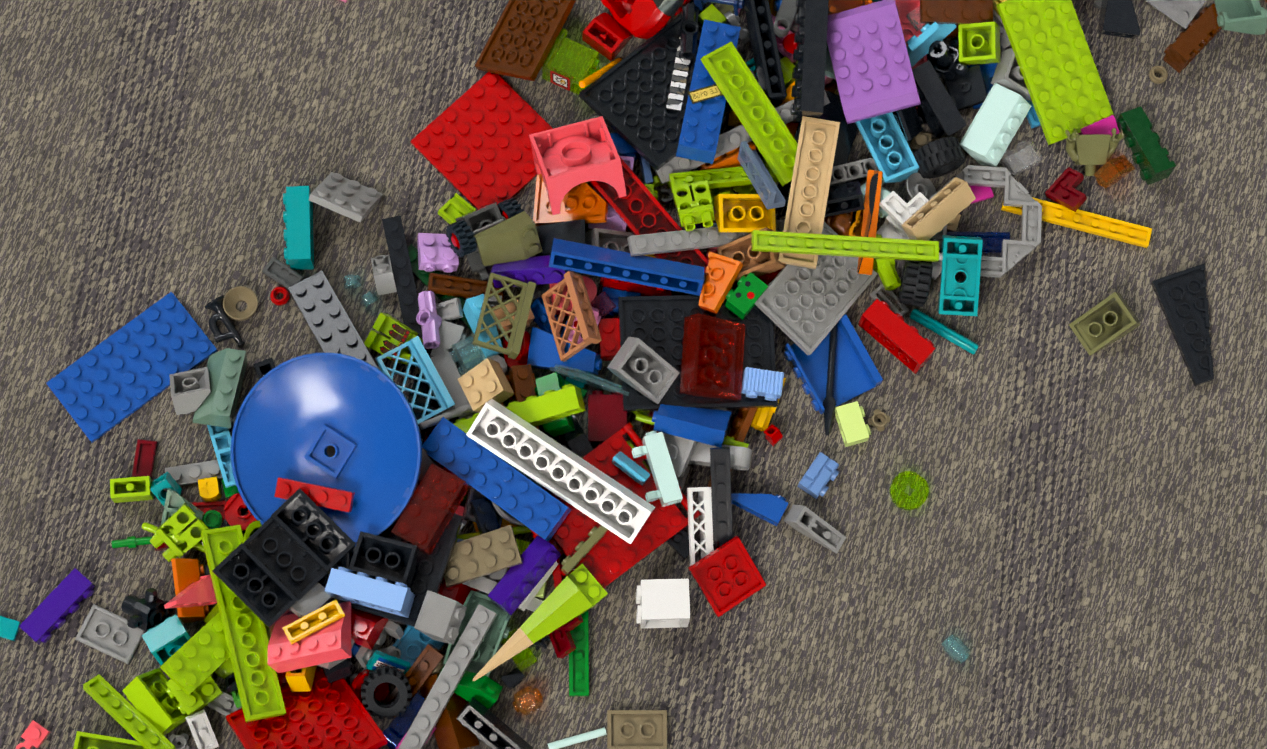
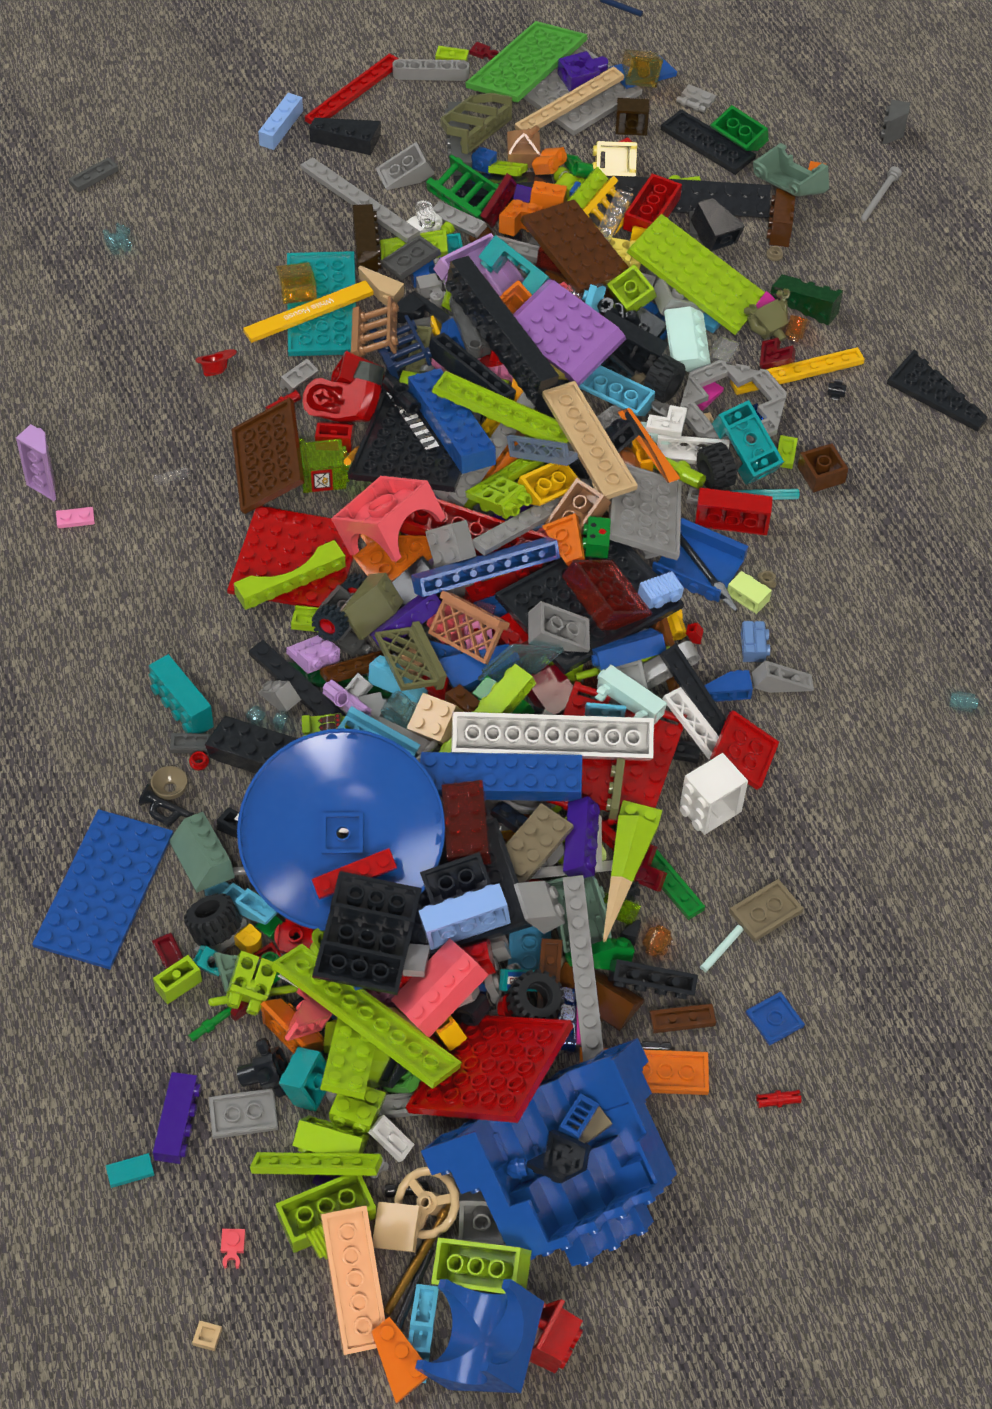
camera: 30 degrees left, 20 degrees down
(189, 389) = (174, 869): light grey slope -> none
(189, 455) = (212, 919): none -> black tyre
(313, 621) = (433, 966): yellow slope -> none
(345, 196) = (204, 650): light grey plate -> none
(427, 161) = (256, 590): none -> lime arch
(610, 226) = (450, 543): none -> light grey brick
(704, 93) = (453, 415): clear yellow sticker -> none
(845, 246) = (647, 458): lime plate -> none
(915, 482) = (828, 622): clear neon green plate -> none
(939, 210) = (696, 408): tan brick -> none
(998, 300) = (787, 450): none -> lime plate
(1014, 339) = (822, 467): none -> reddish brown brick
(1095, 263) = (836, 389): none -> black gear
(1104, 323) = (878, 423): olive slope -> none

